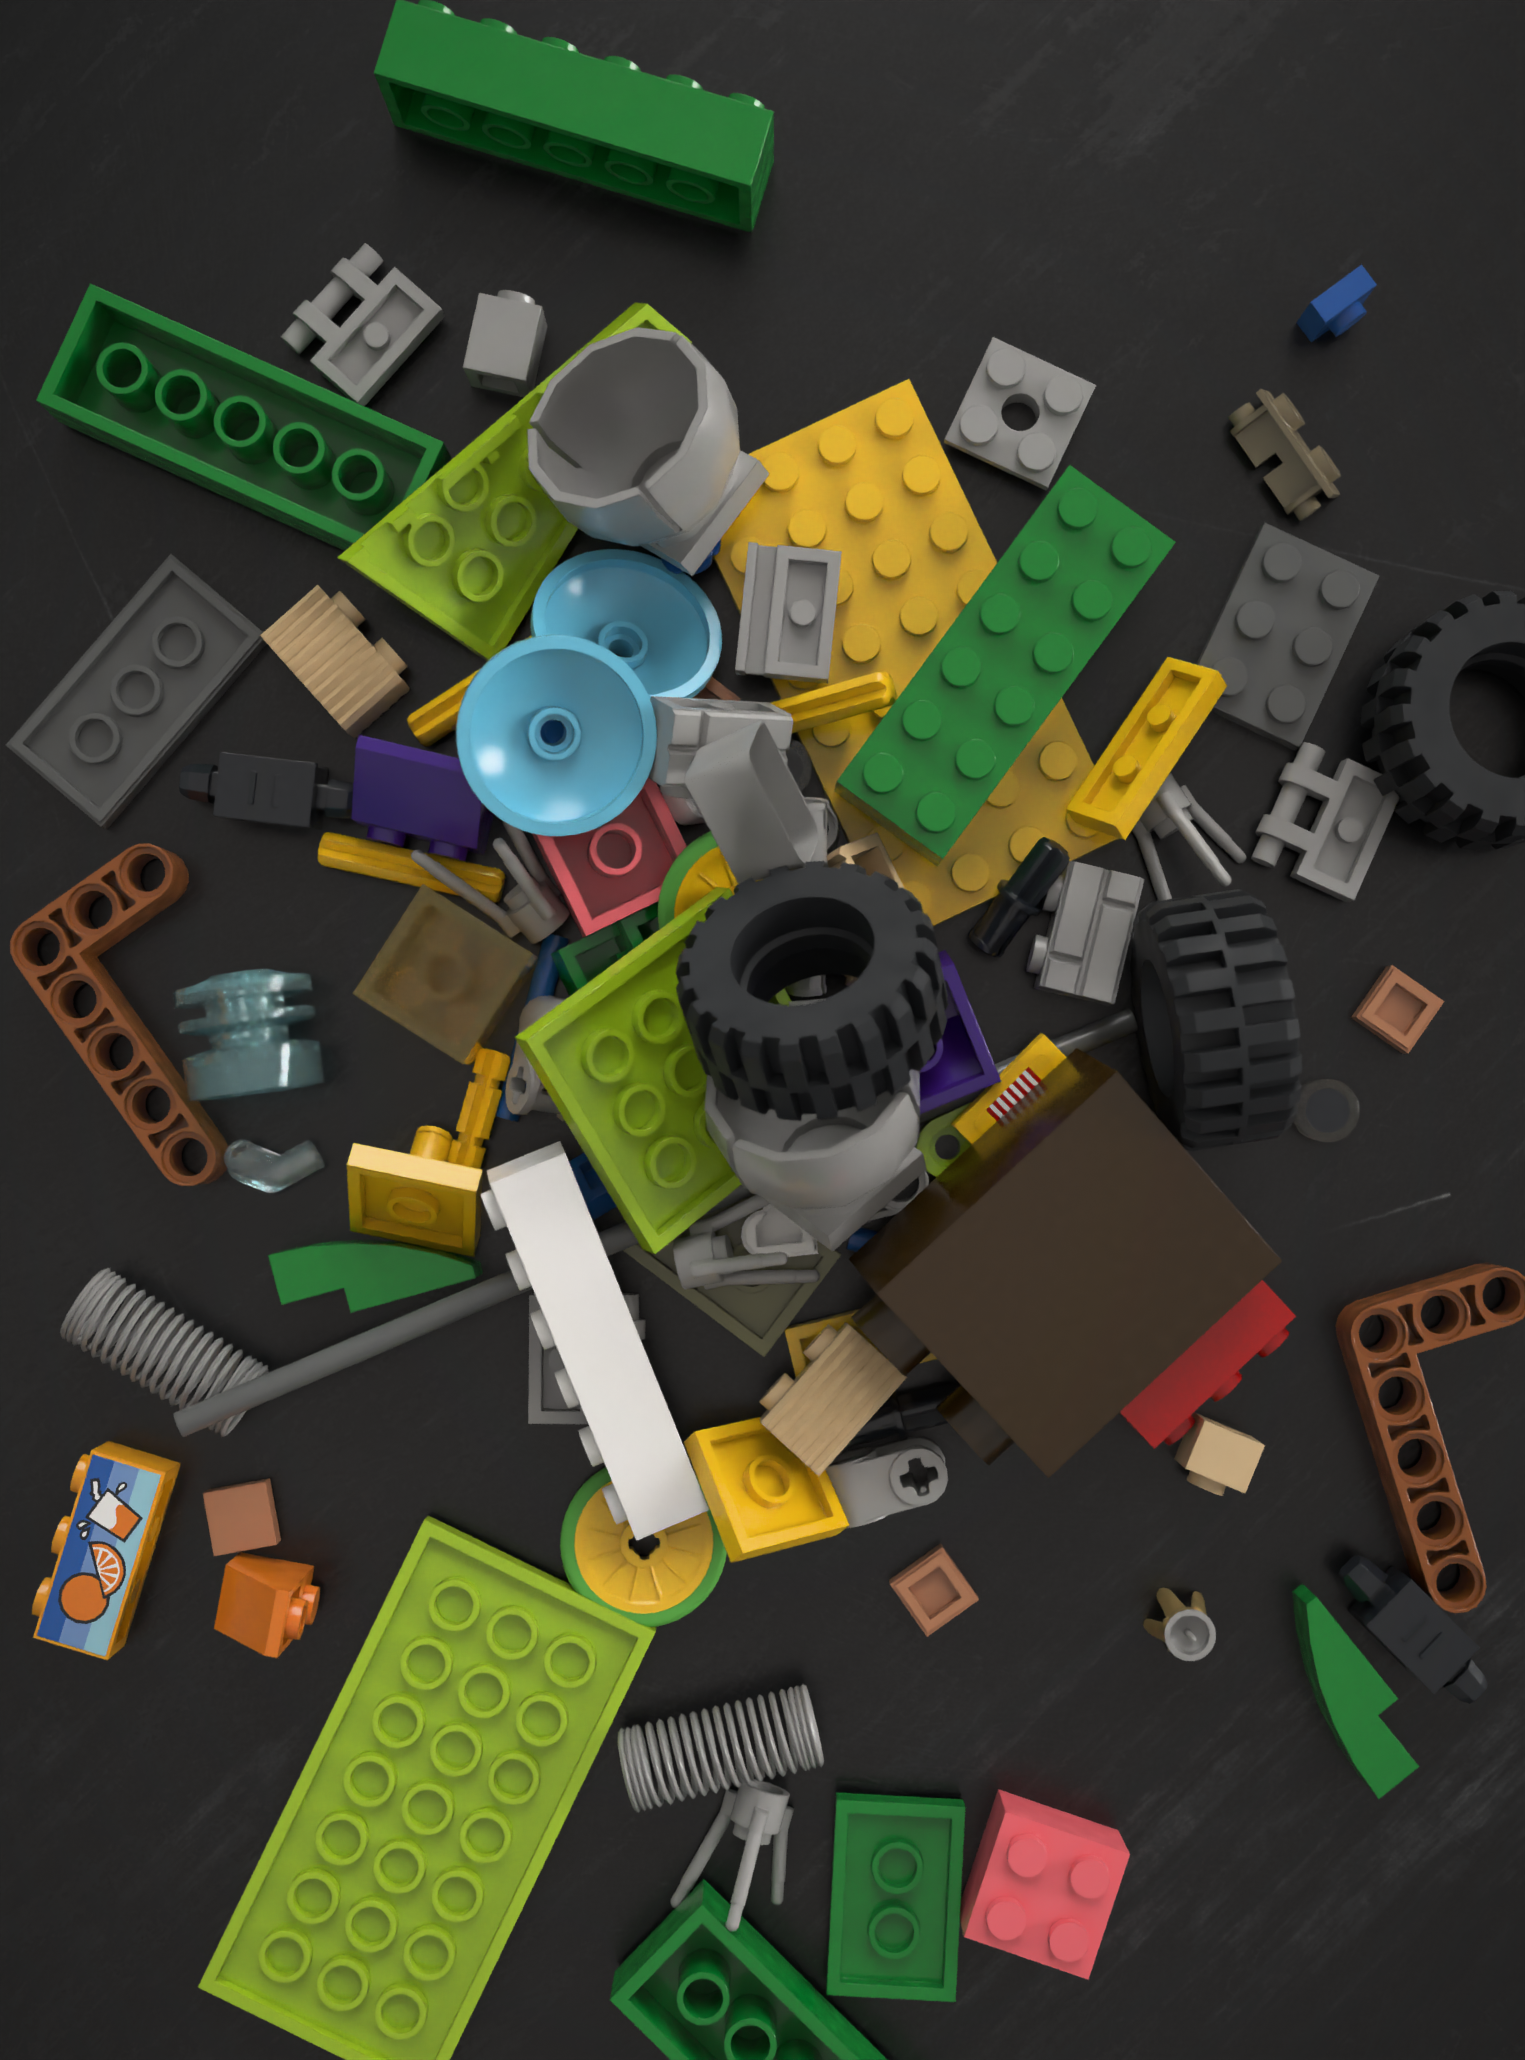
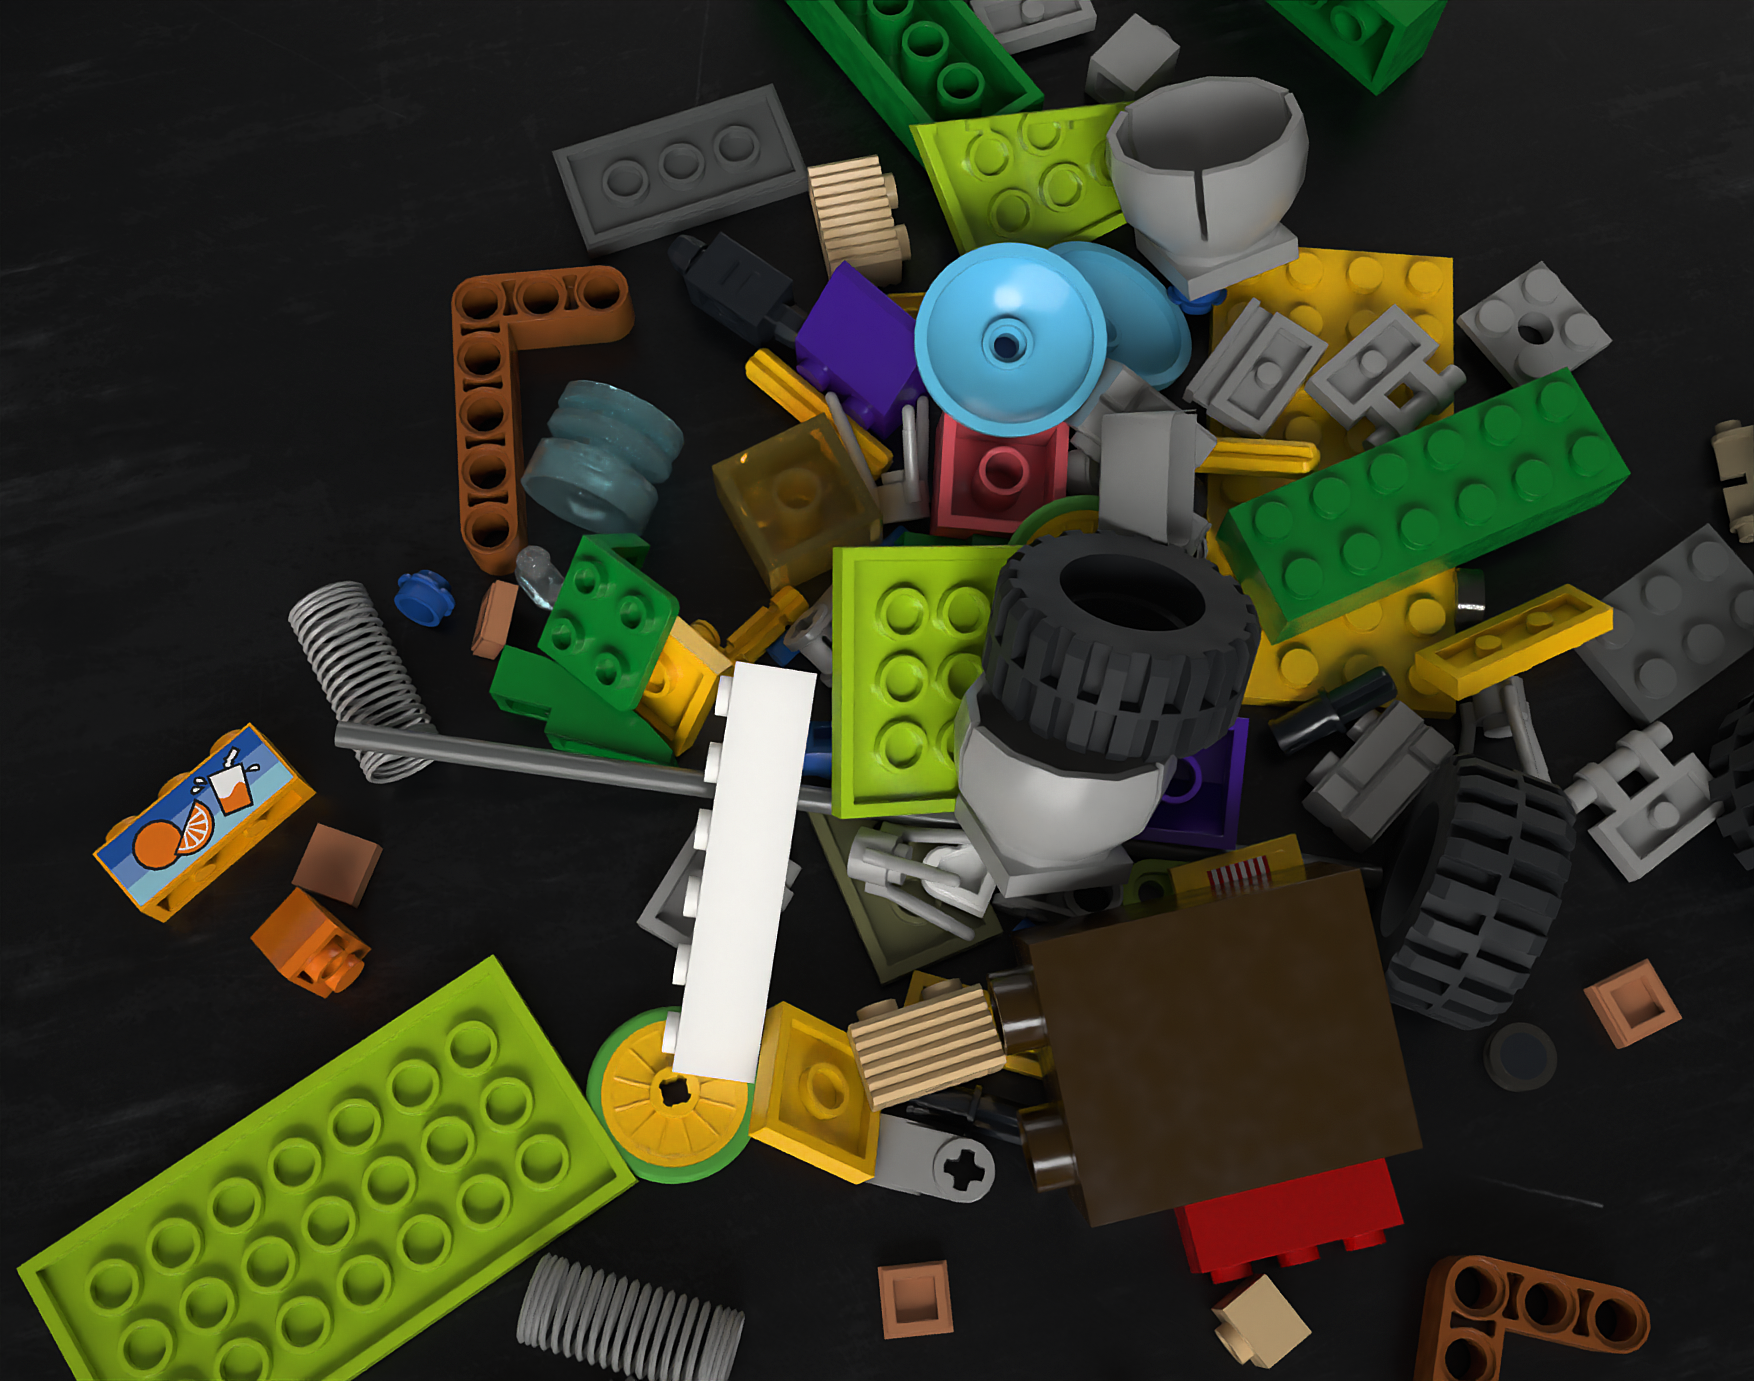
camera: 25 degrees right, 15 degrees down
(165, 1243) = (424, 597): none -> blue plate
(241, 1231) = (494, 619): none -> nougat tile
(349, 1190) = (610, 619): none -> green bracket
(892, 550) = (1372, 367): none -> light grey plate
(1086, 720) = (1468, 597): none -> clear smoke tile

